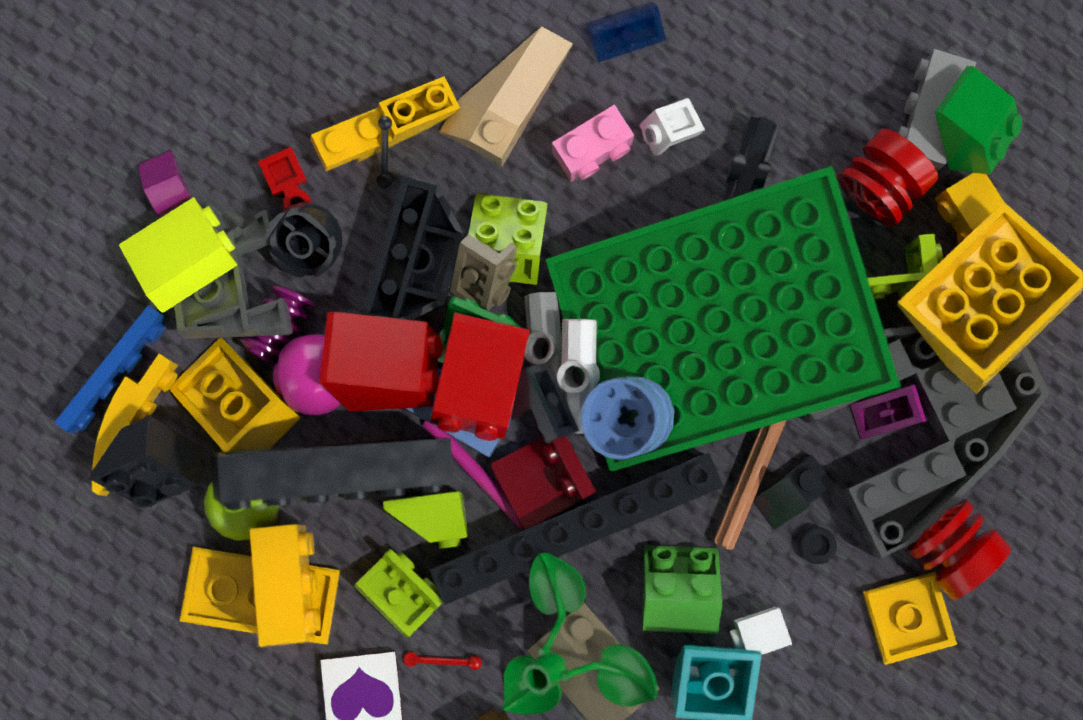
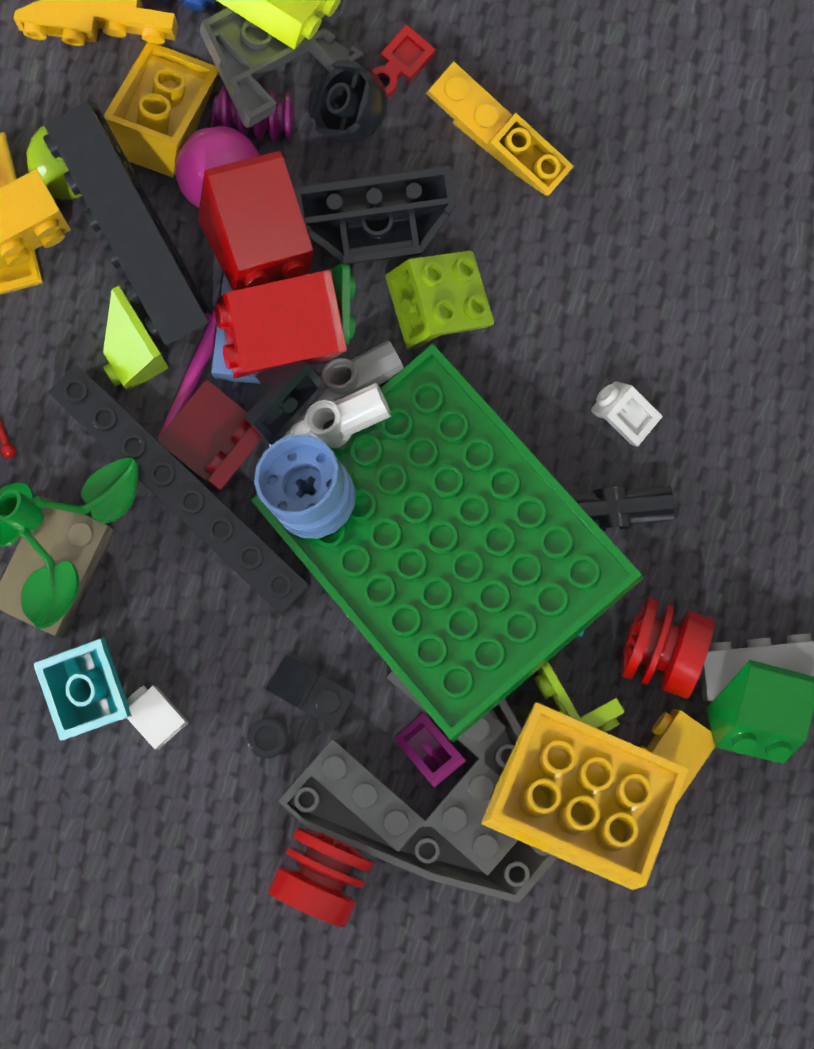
camera: 65 degrees right, 0 degrees up
(149, 463) = (63, 52): black slope -> none
(384, 179) = (446, 155): black hinge -> none
(399, 592) = (43, 346): lime bracket -> none
(483, 273) = (387, 286): dark tan bracket -> none
(506, 98) = (578, 237): tan wedge -> none
(592, 144) = (570, 340): bright pink brick -> none
(626, 31) = (703, 326): clear blue slope -> none
(681, 589) = (164, 619): bright green slope -> none
(747, 485) = (296, 643): nougat axle -> none
(909, 618) = (233, 861): yellow tile -> none

